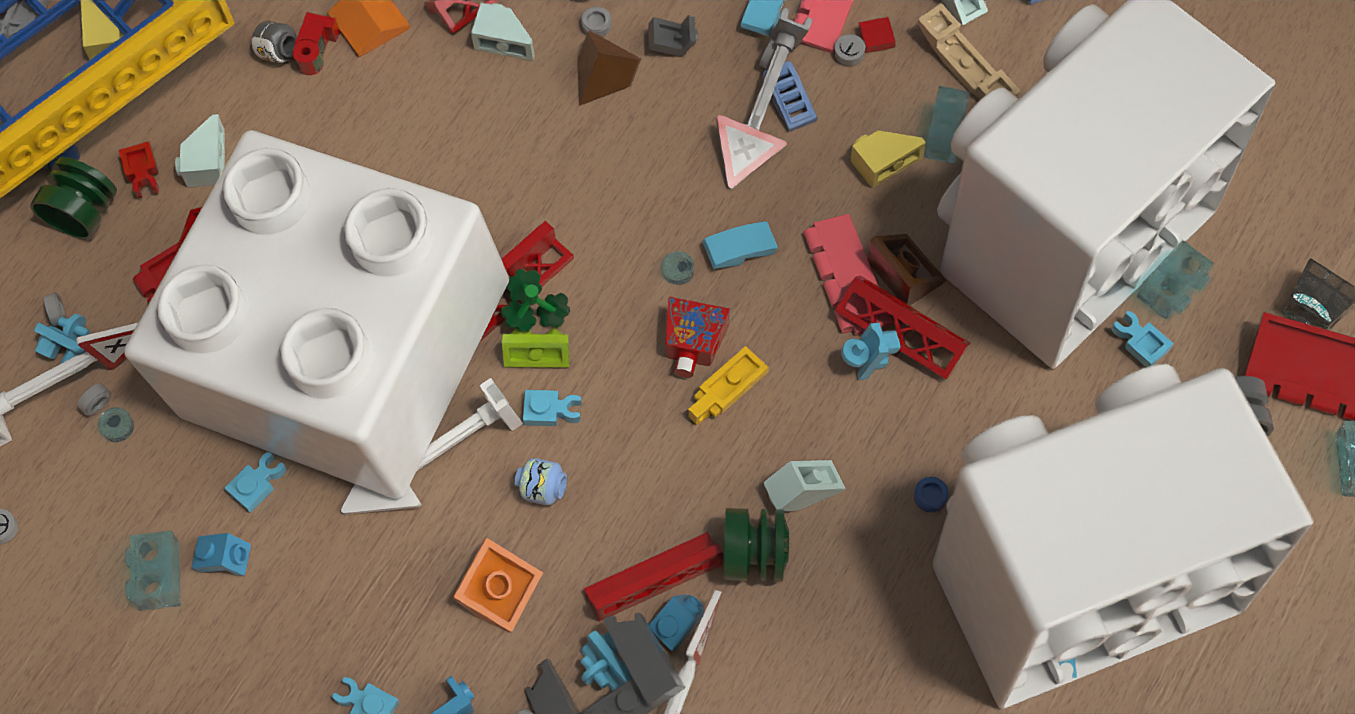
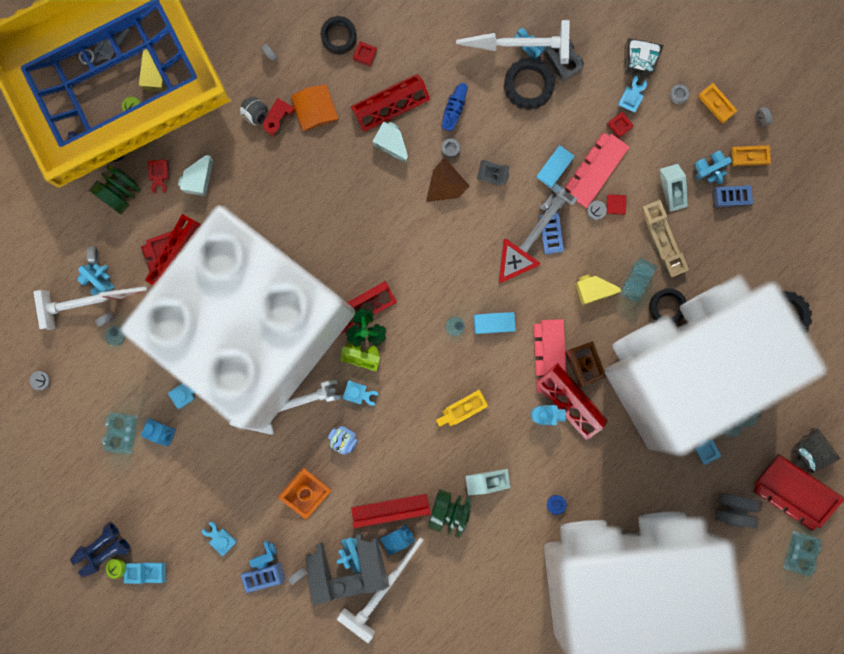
camera: 10 degrees right, 20 degrees up
(694, 333) = (451, 373): red torso -> none

